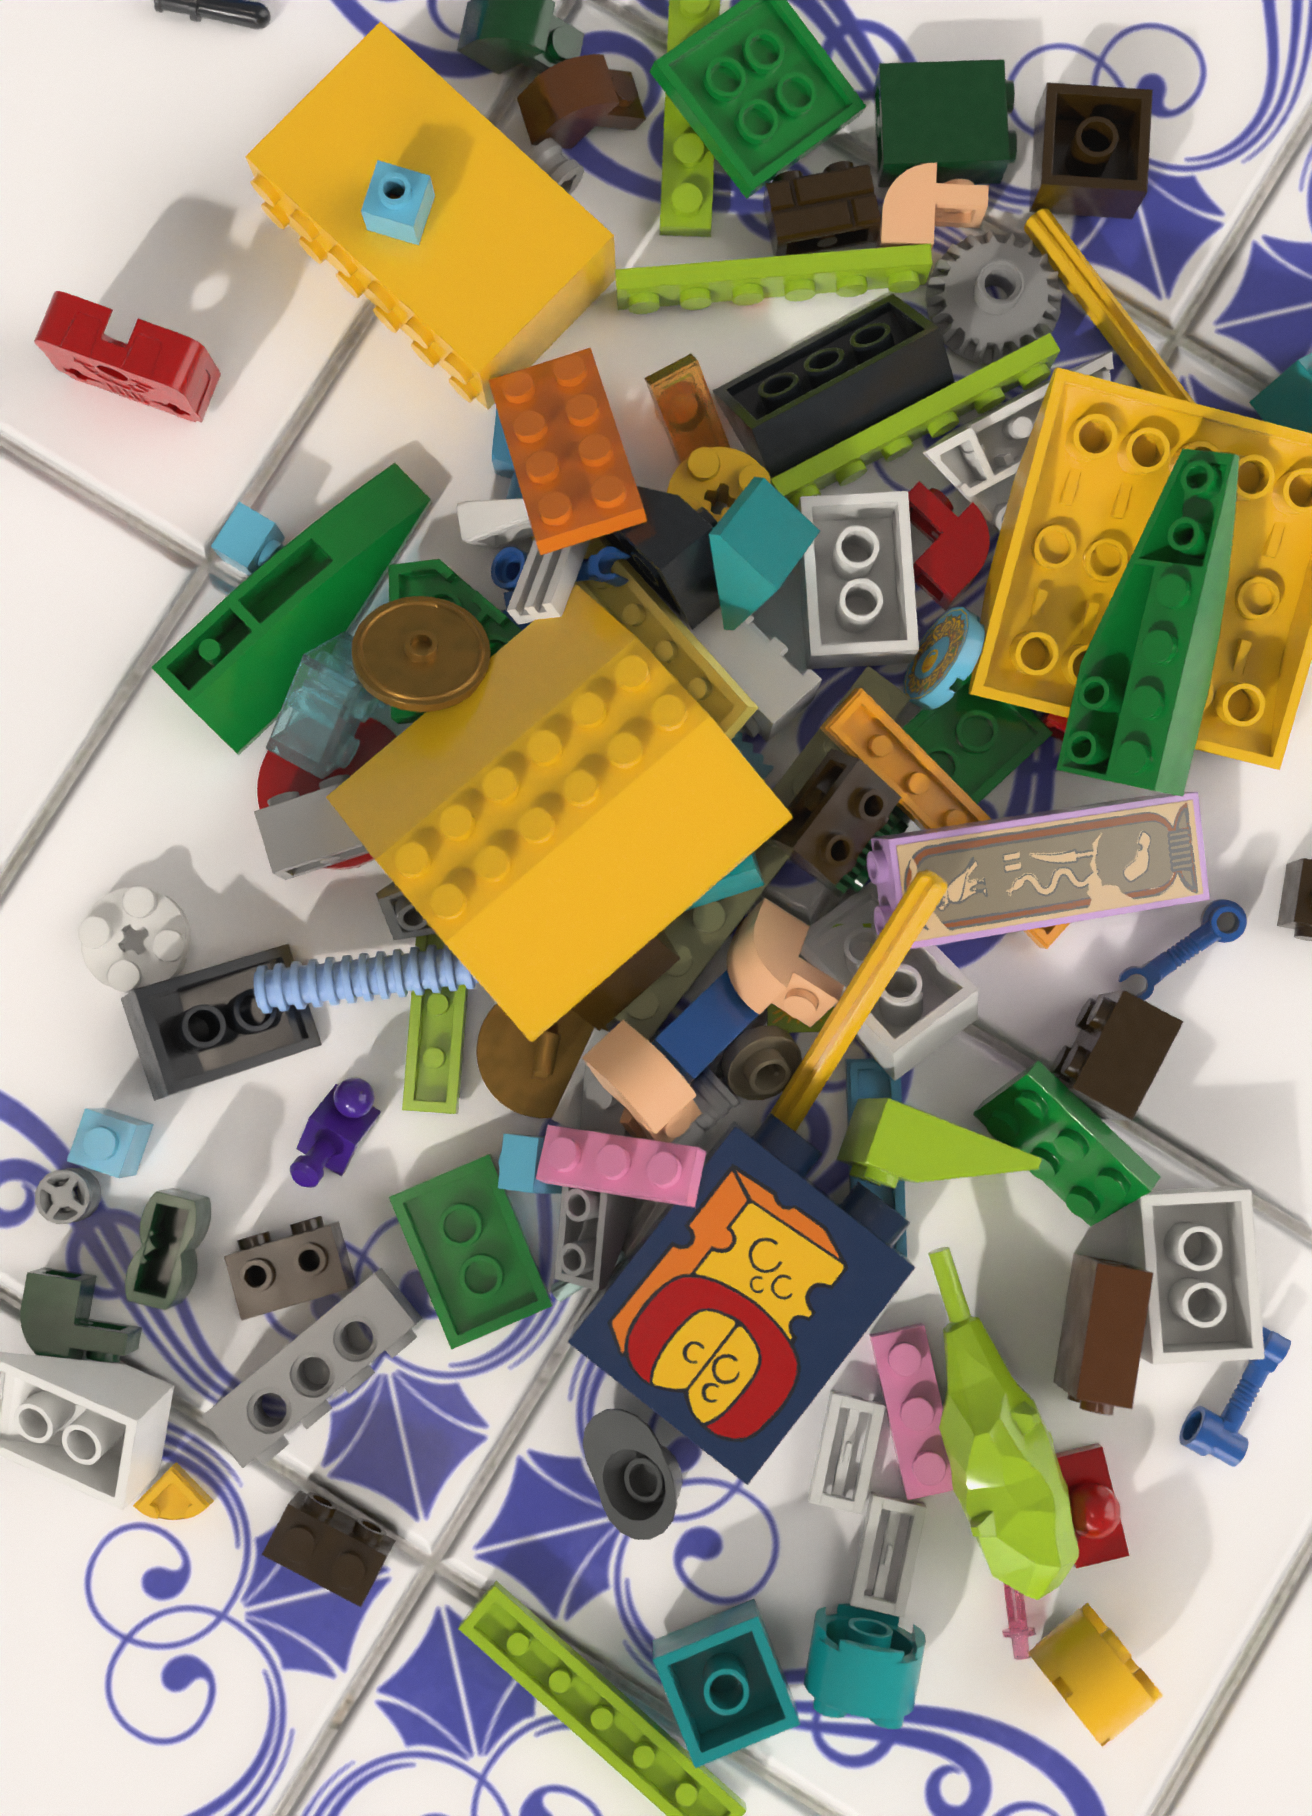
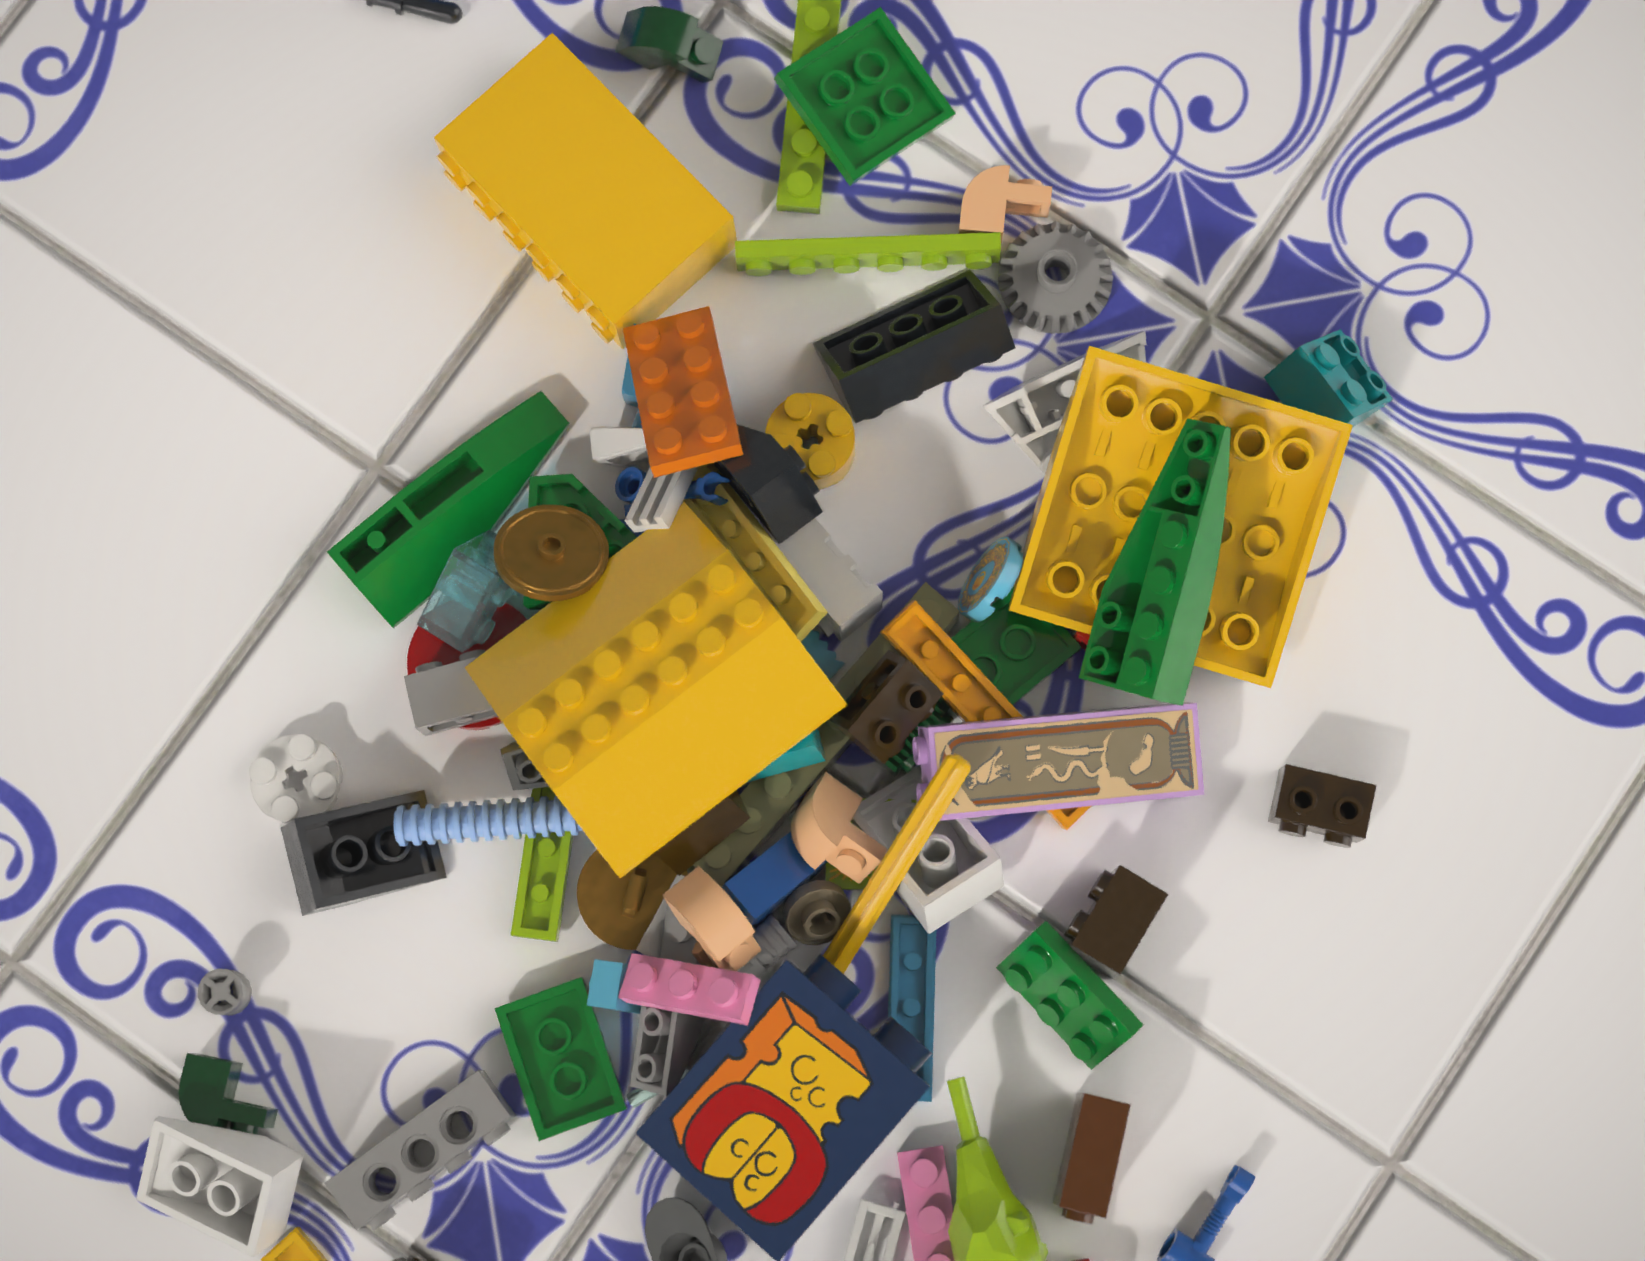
camera: 10 degrees right, 5 degrees down
(110, 1142) = (263, 948): medium azure brick -> none
(152, 369) = (343, 303): red axle -> none
(167, 1260) = (303, 1051): brick -> none
(247, 540) = (414, 449): medium azure plate -> none
(290, 1269) = (407, 1064): brick -> none
(334, 1131) = (453, 950): dark purple piece -> none
(399, 217) = (557, 196): medium azure plate -> none
(563, 171) = (690, 152): light grey wheel -> none
(576, 97) = (712, 96): reddish brown brick -> none
(685, 407) = (787, 359): clear orange tile -> none
(756, 549) = (833, 480): teal slope -> none
(821, 209) = (912, 198): dark brown brick -> none
(858, 581) = (922, 510): white brick -> none
(900, 1143) = (934, 986): lime slope -> none
(931, 415) = (994, 374): lime plate -> none
(945, 117) = (1021, 128): dark green brick -> none
(957, 546) = (1011, 483): red brick -> none
(1091, 150) = (1140, 161): dark brown brick -> none
(1102, 306) = (1151, 296): yellow axle -> none
(1197, 941) = (1191, 832): blue brick -> none
(1203, 1276) = (1174, 1113): white brick -> none

